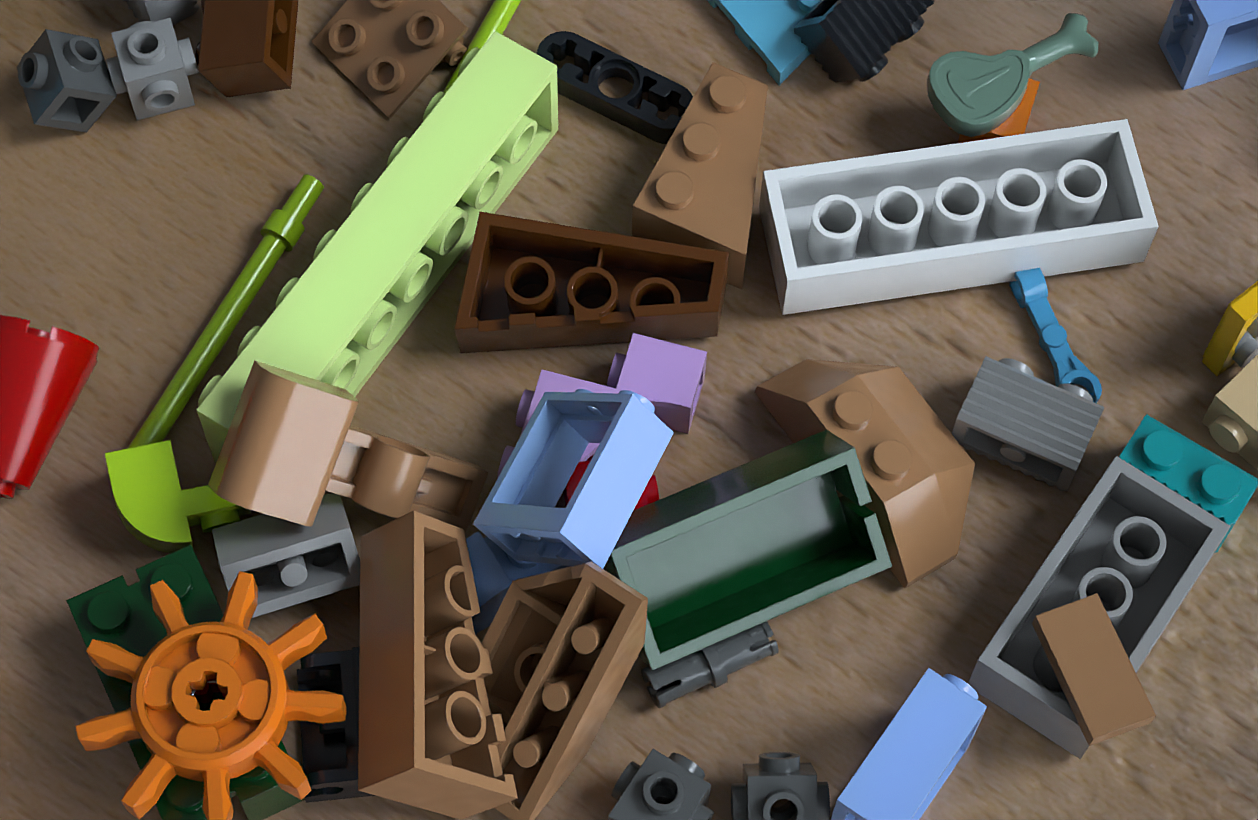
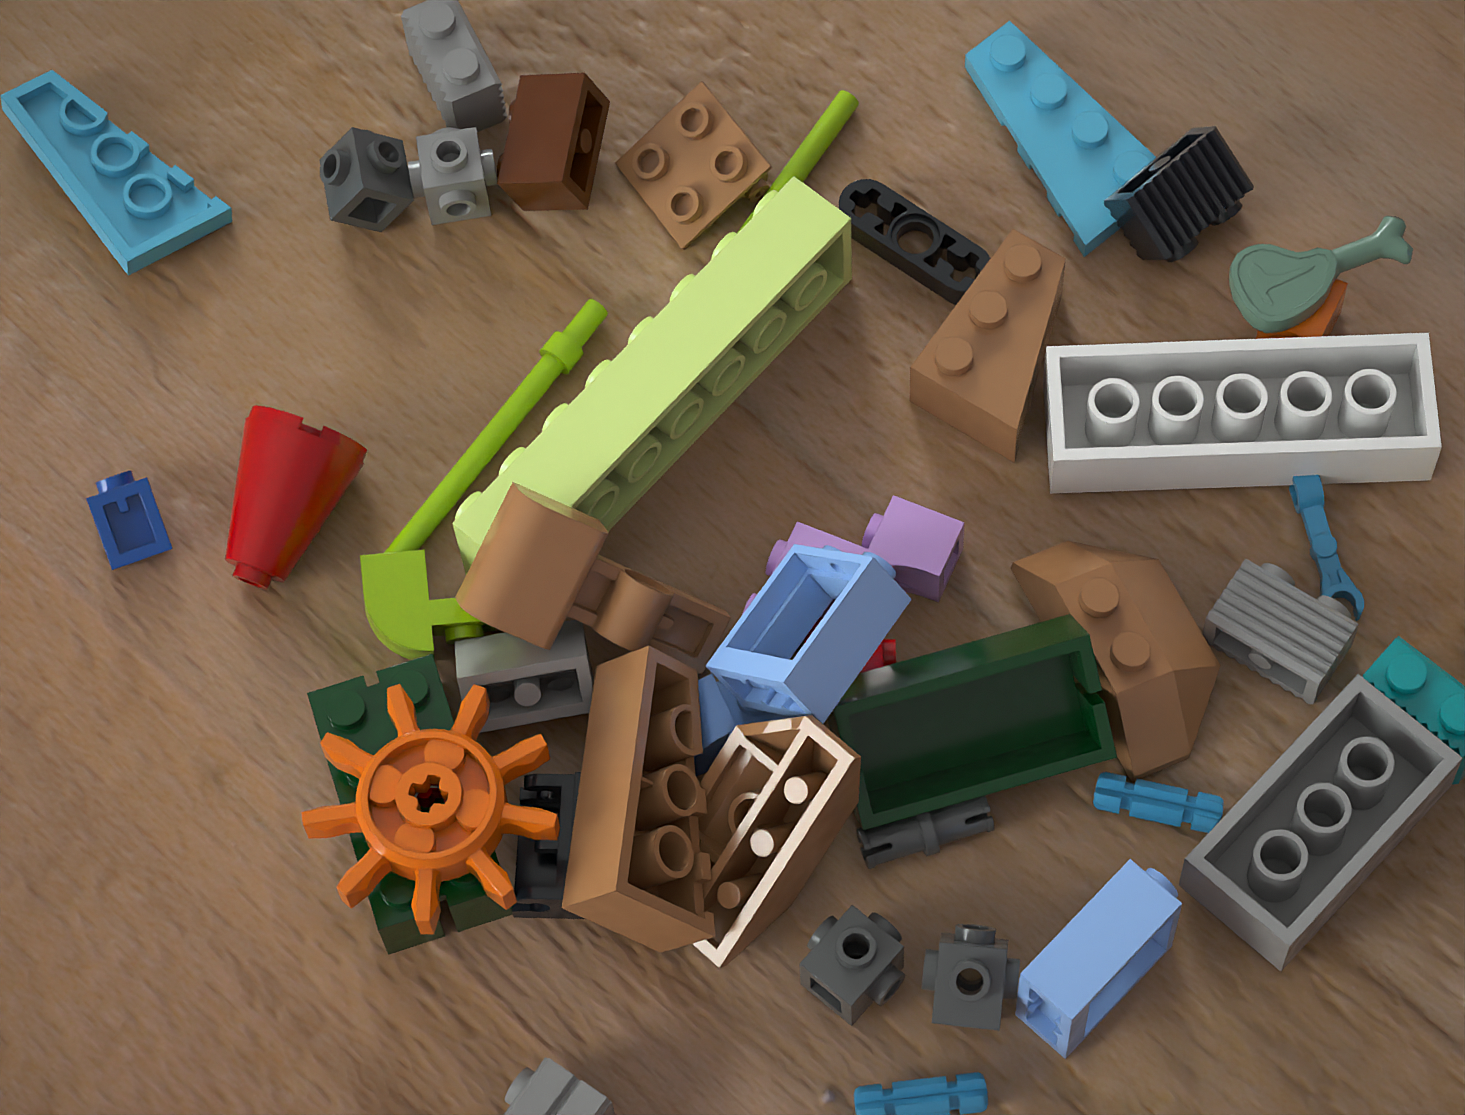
camera: 15 degrees right, 0 degrees up
(581, 286) = (851, 444): reddish brown wedge -> none
(935, 605) = (1157, 802): none -> dark azure axle
(1093, 669) = (1297, 881): medium nougat tile -> none

